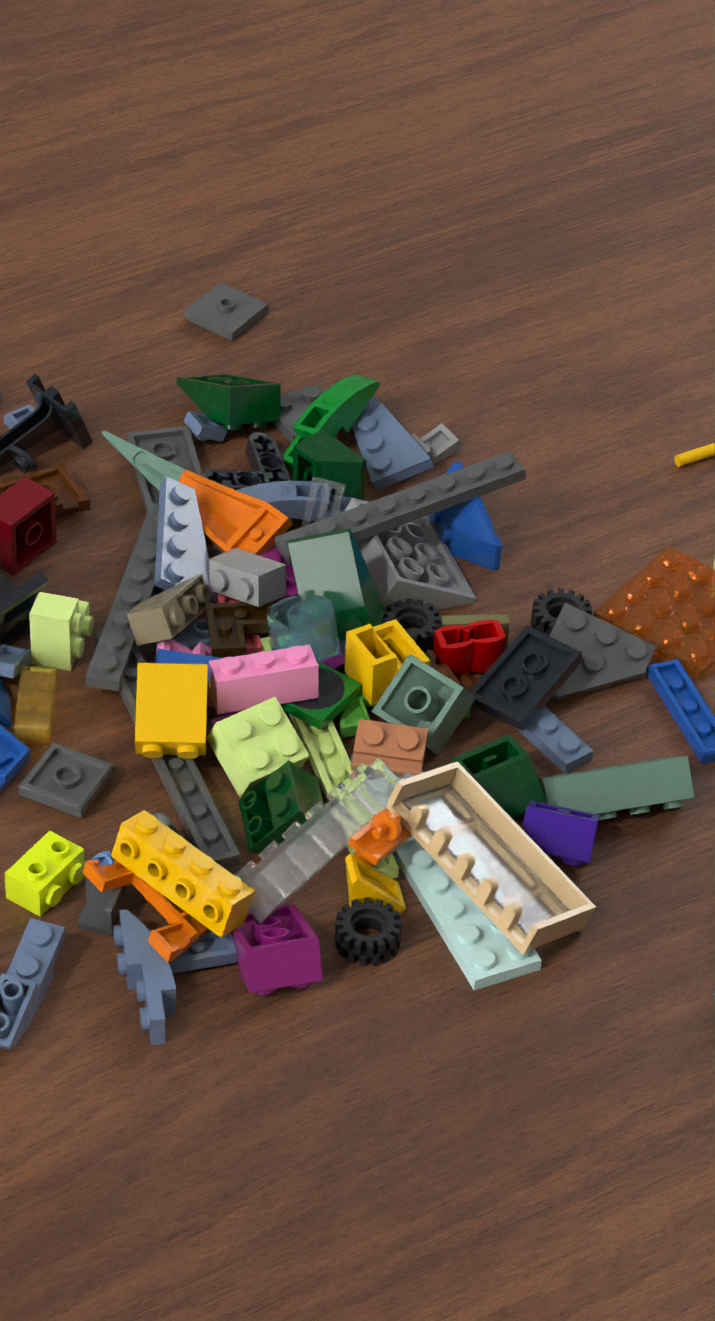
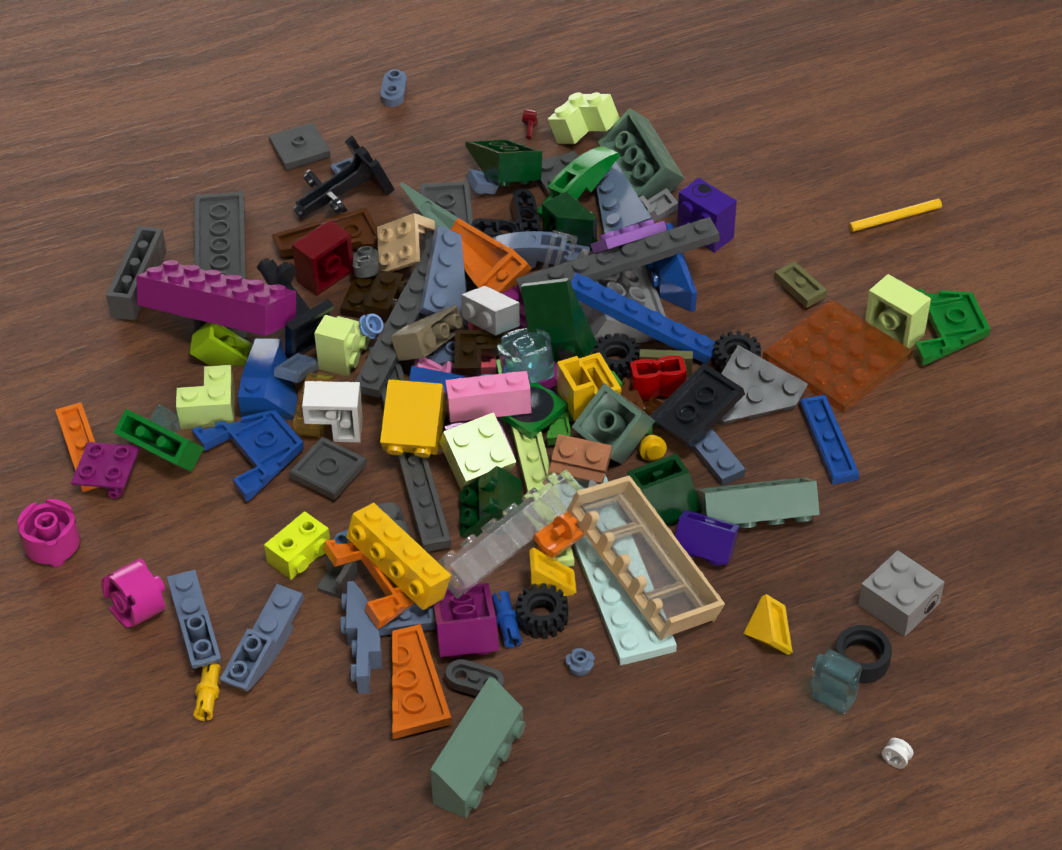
camera: 10 degrees right, 5 degrees up
(68, 700) = (336, 405): none -> white brick
(69, 317) = (393, 88): none -> sand blue plate
(73, 530) = (366, 262): none -> dark grey plate
(91, 571) = (373, 295): none -> dark brown plate
(96, 604) = (370, 325): none -> medium blue plate
(116, 502) = (400, 241): none -> tan bracket
(224, 1030) = (417, 692): none -> orange wing
(226, 311) = (514, 88): dark grey plate -> none
(252, 346) = (530, 118): none -> dark red hand
(297, 1016) = (474, 675): none -> dark grey plate
(316, 1096) = (476, 749): none -> sand green slope
(323, 338) = (581, 115): none -> yellowish green brick
(328, 945) = (506, 619): none -> blue pin
(405, 384) = (642, 155): none -> sand green slope
(410, 477) = (628, 235): none -> medium lavender plate
(424, 988) = (578, 667): none -> sand blue plate
(440, 578) = (642, 318): none -> blue plate
(474, 732) = (652, 448): none -> yellow plate
(495, 433) = (702, 201): none -> dark purple brick
(627, 530) = (800, 284): none -> olive plate
(652, 931) = (770, 625): none -> yellow slope

